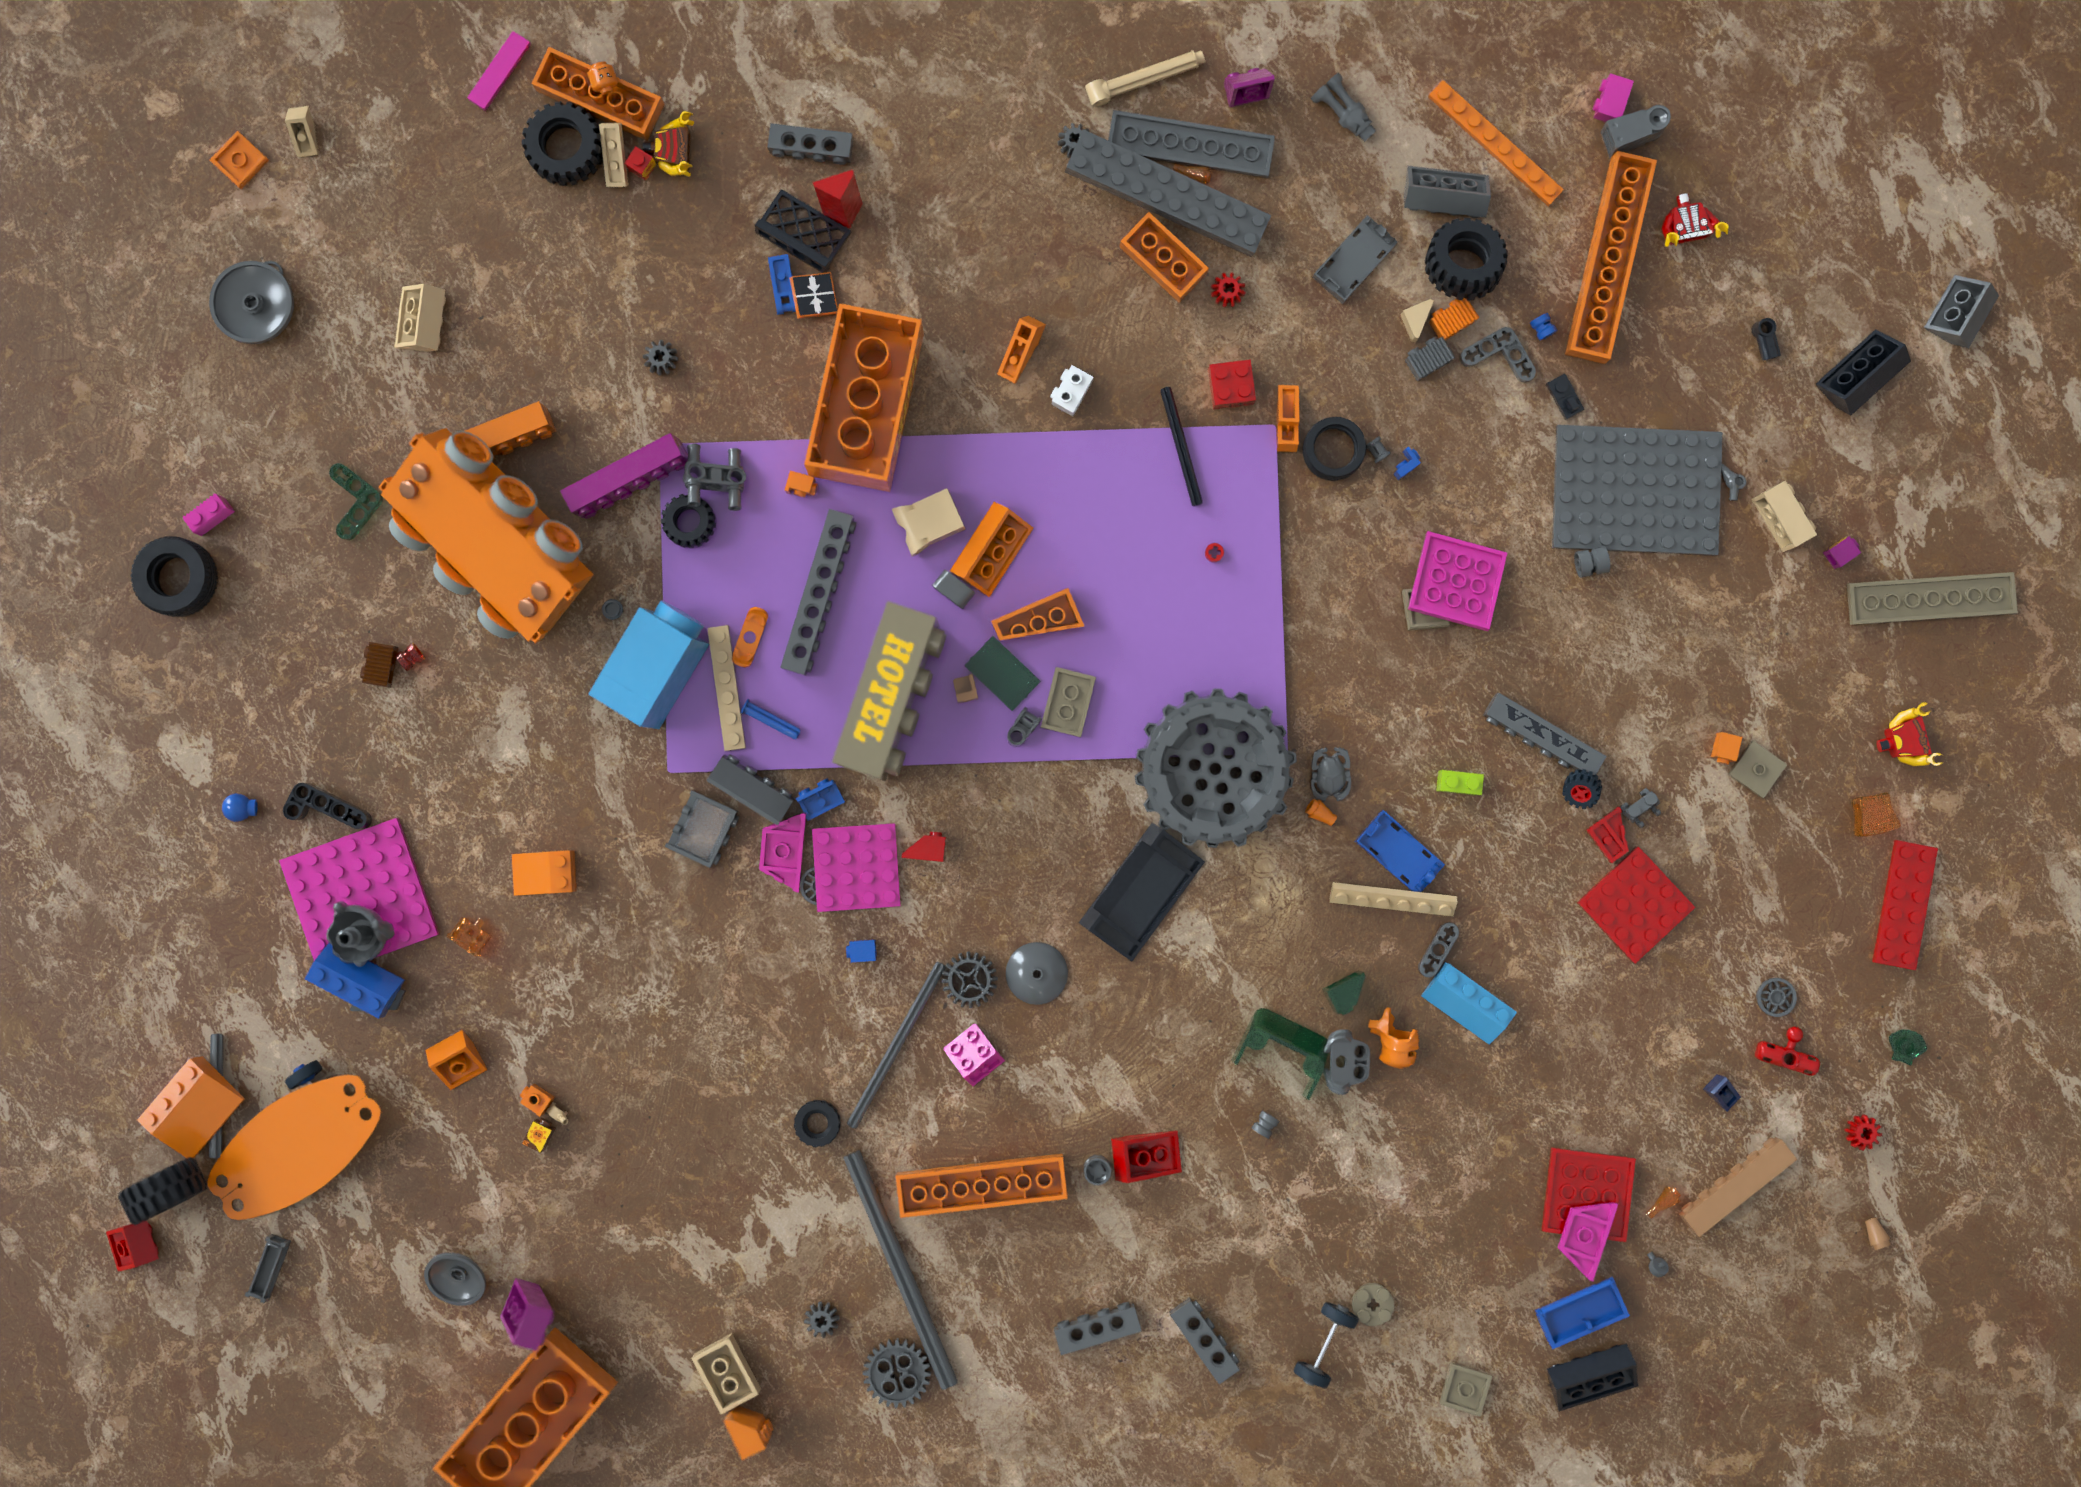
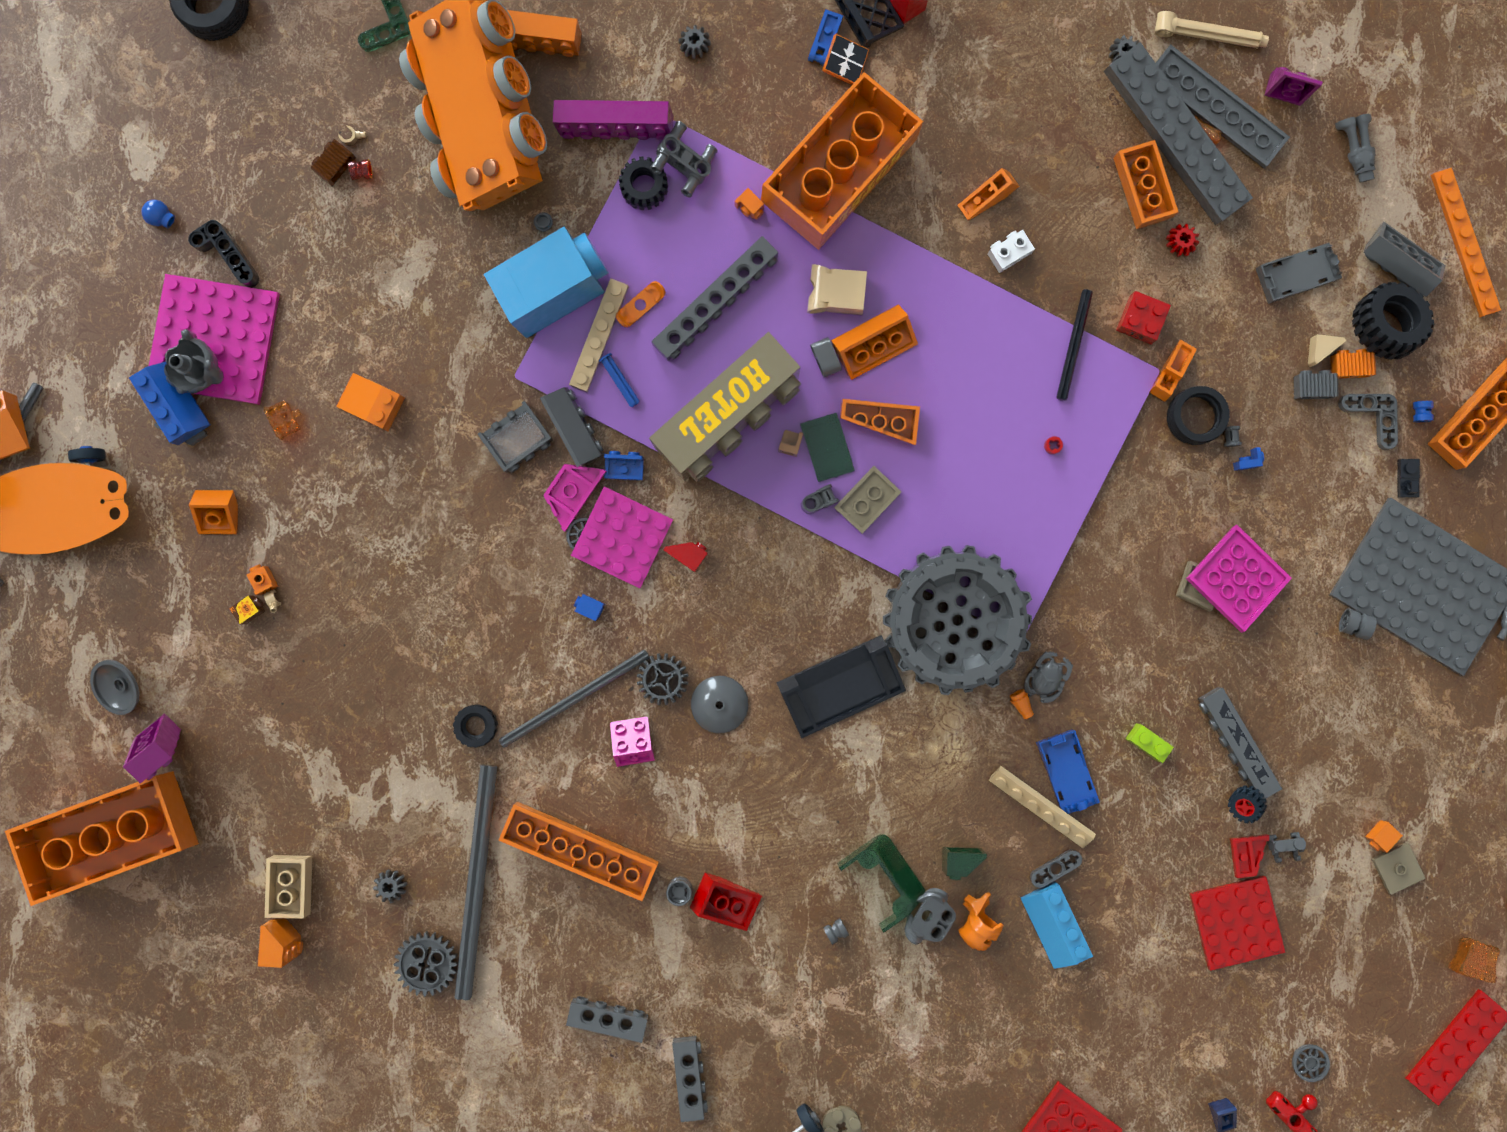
camera: 30 degrees right, 0 degrees up
(386, 626) = (355, 135): none -> tan piece

